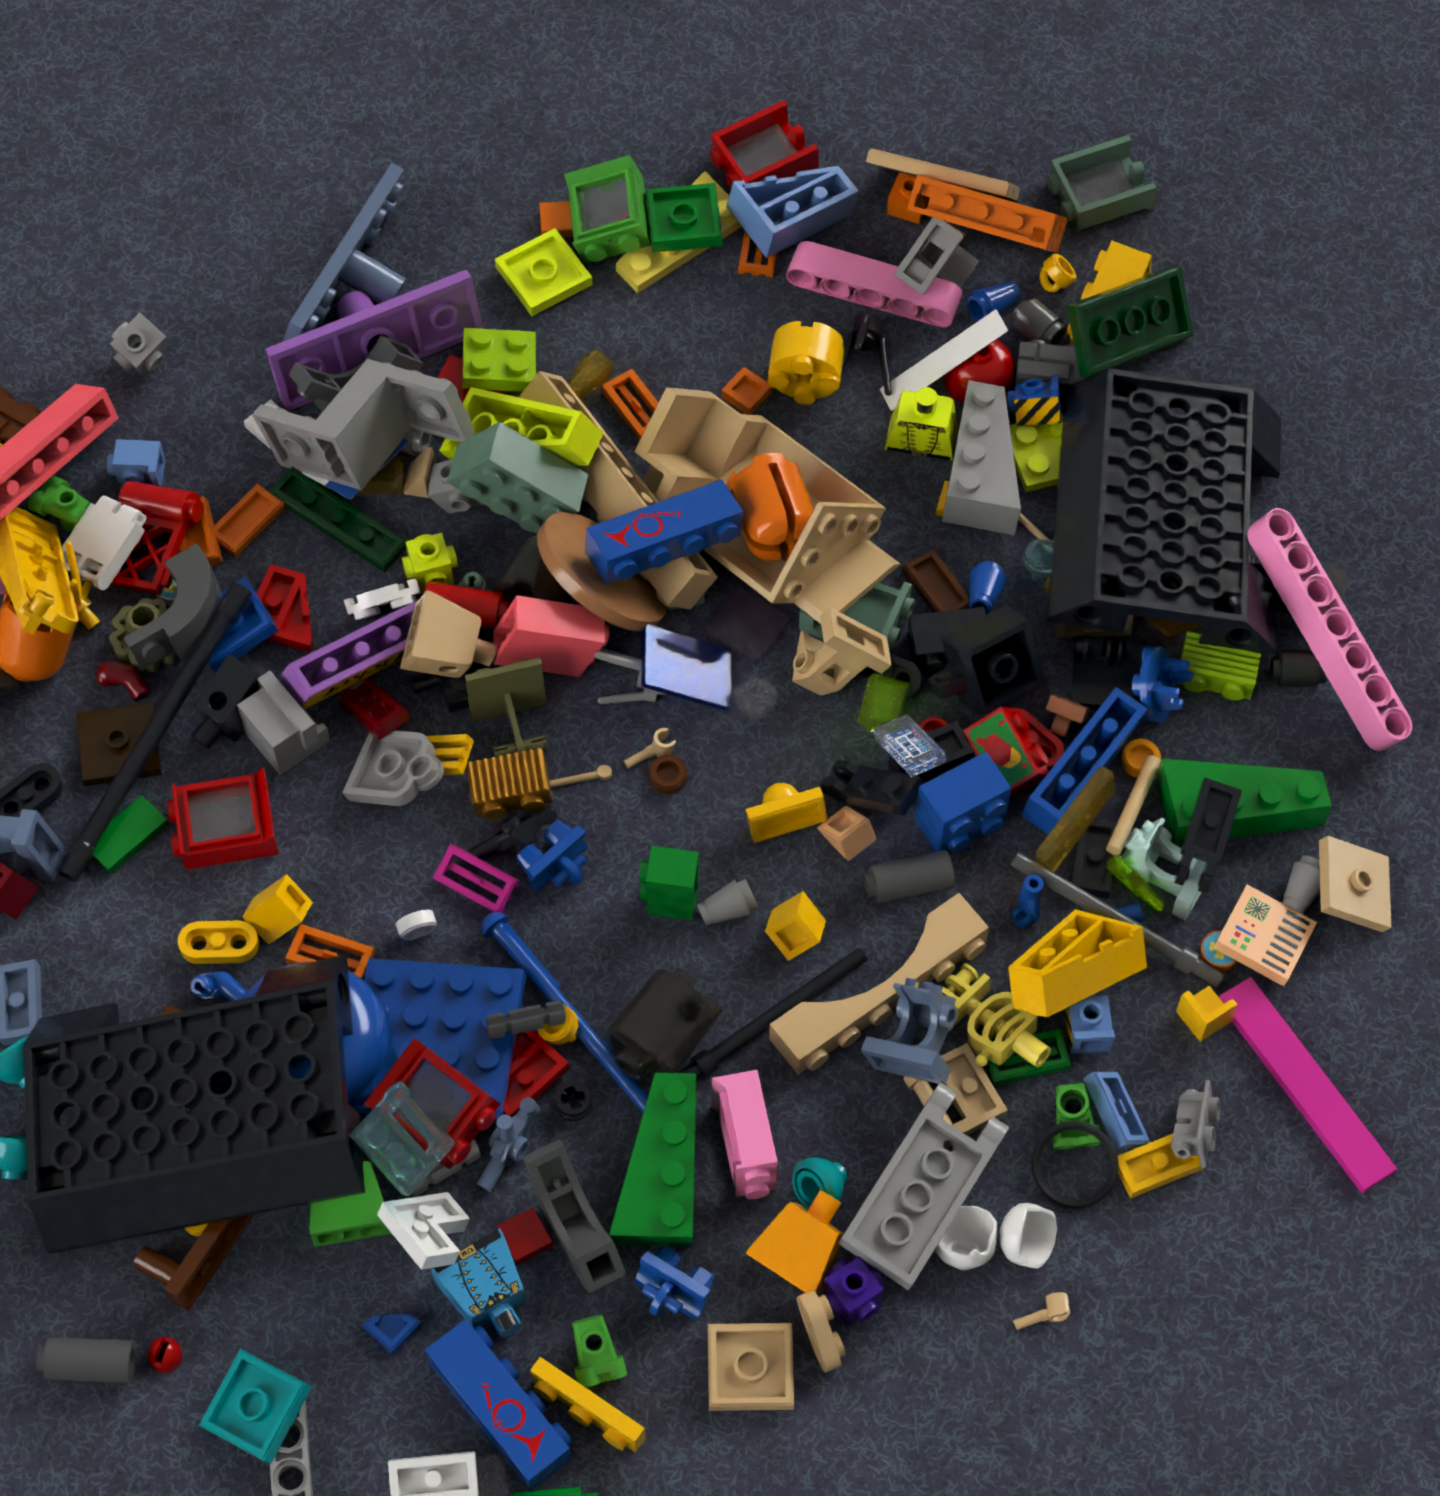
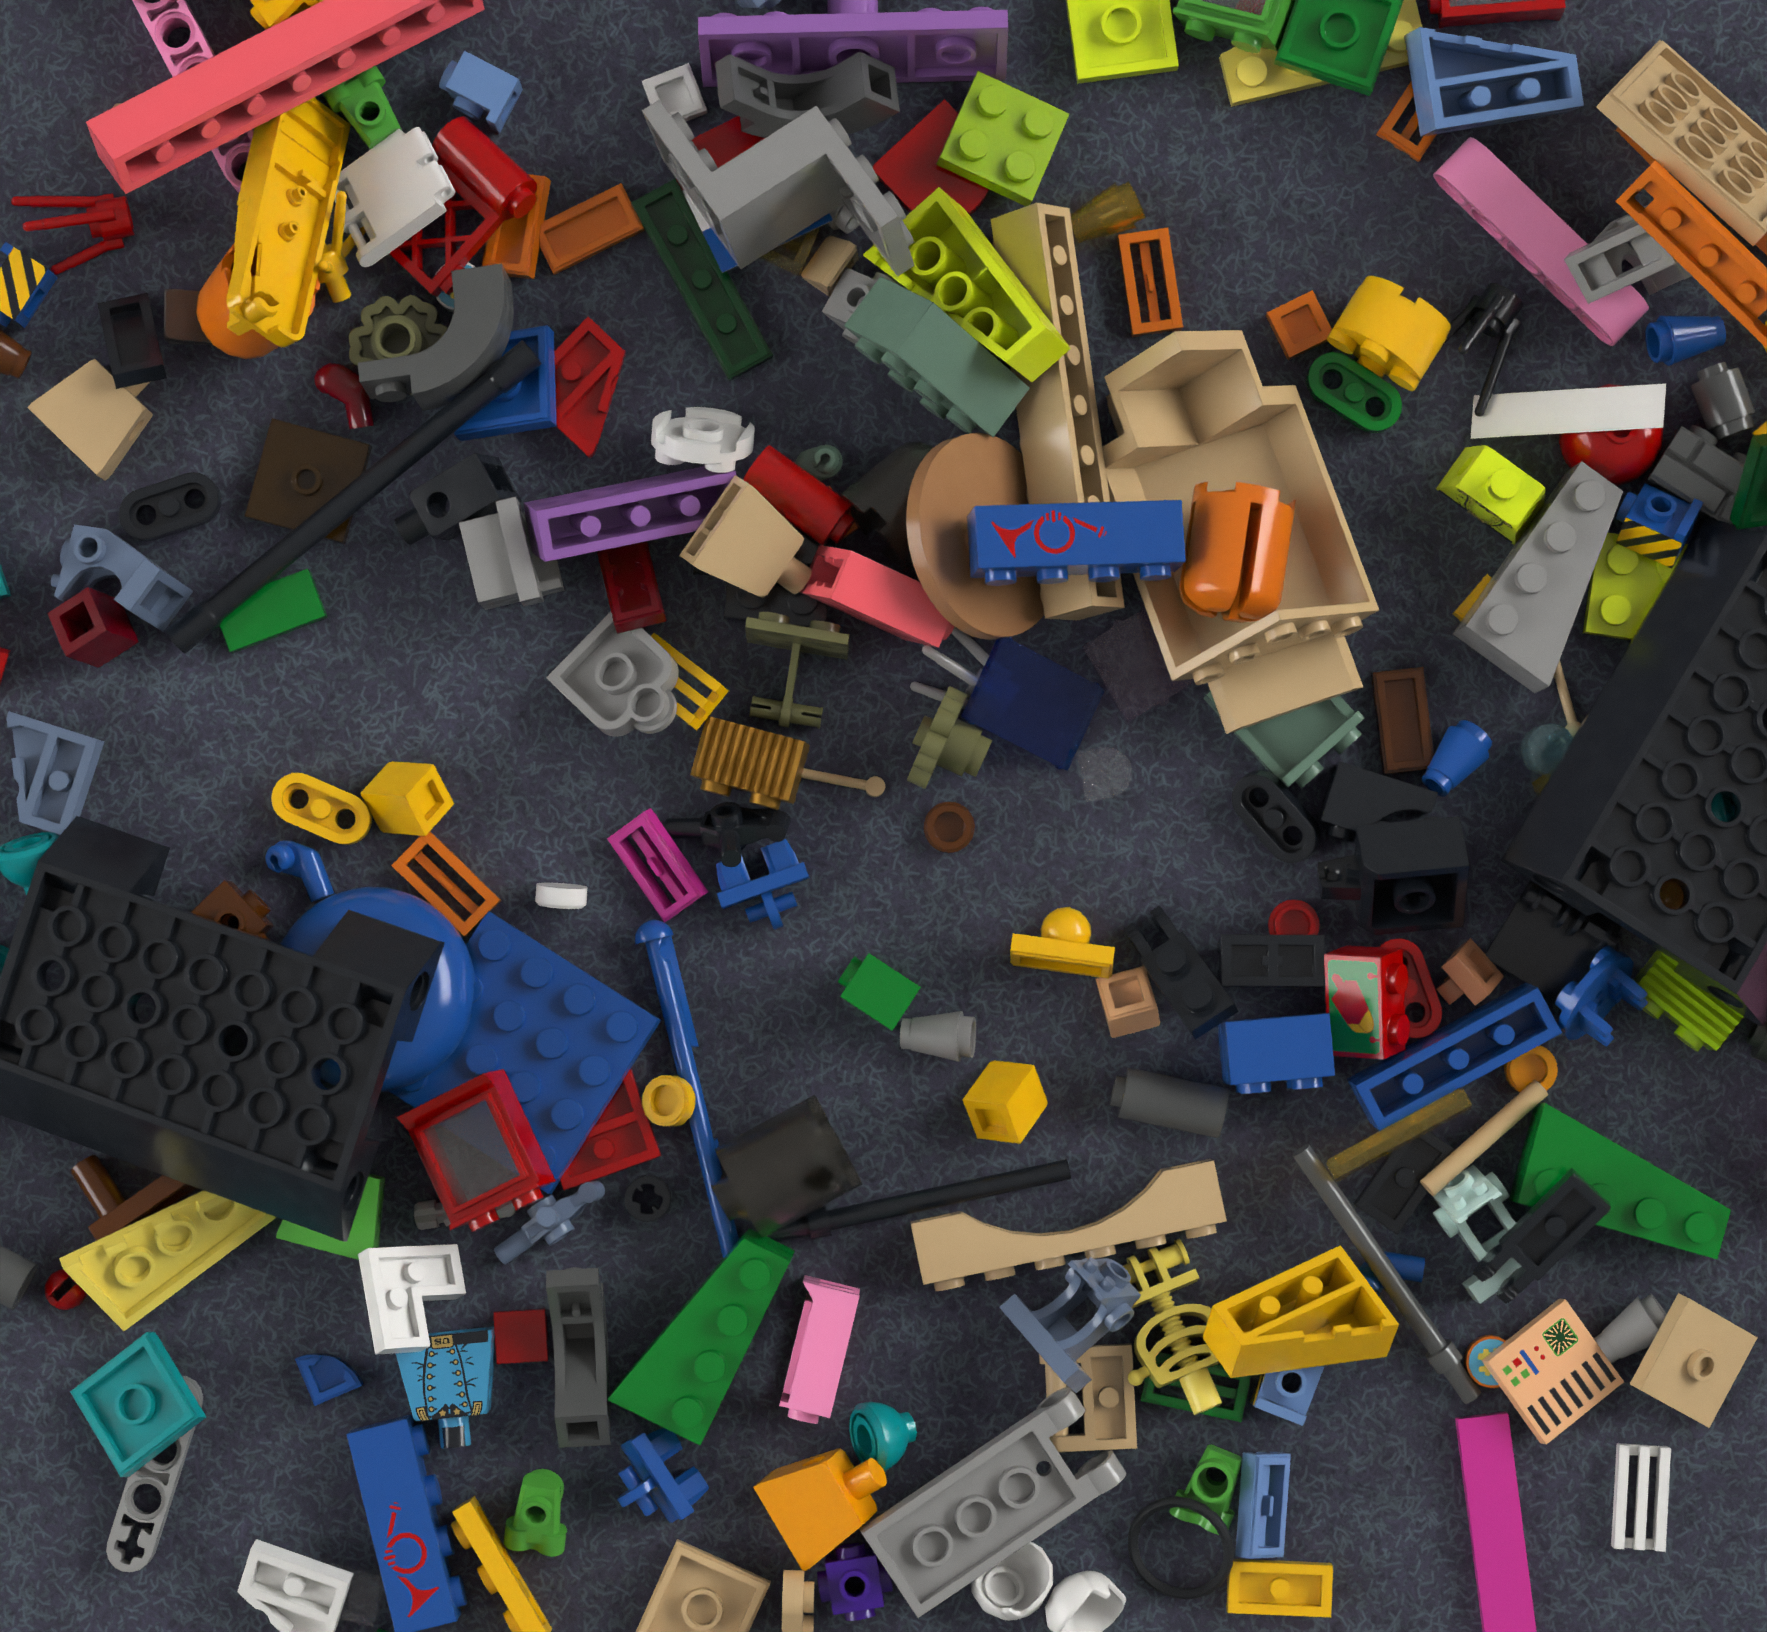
camera: 25 degrees right, 25 degrees up
(222, 821) = (388, 649): red window -> none
(228, 1288) = (160, 1254): none -> light yellow wing
(393, 1147) = (397, 1211): clear light blue plate -> none
(429, 560) = (784, 426): neon yellow brick -> none
(525, 1019) = (628, 1092): dark grey axle -> none
(640, 710) = (948, 742): none -> olive plant
(655, 749) = (941, 785): tan hand -> none
(802, 410) = (1356, 389): none -> green plate
(832, 664) = (1206, 774): tan tile -> none
(882, 701) = (1250, 863): clear neon green brick -> none
(909, 745) = (1246, 950): clear tile -> none
(1028, 901) = (1297, 1198): blue arm -> none
(1134, 882) = (1433, 1234): clear neon green piece -> none
(1195, 1132) = (1356, 1553): light grey hinge -> none
(1205, 1012) = (1432, 1432): yellow panel -> none
(1358, 964) = (1639, 1541): none -> white tile

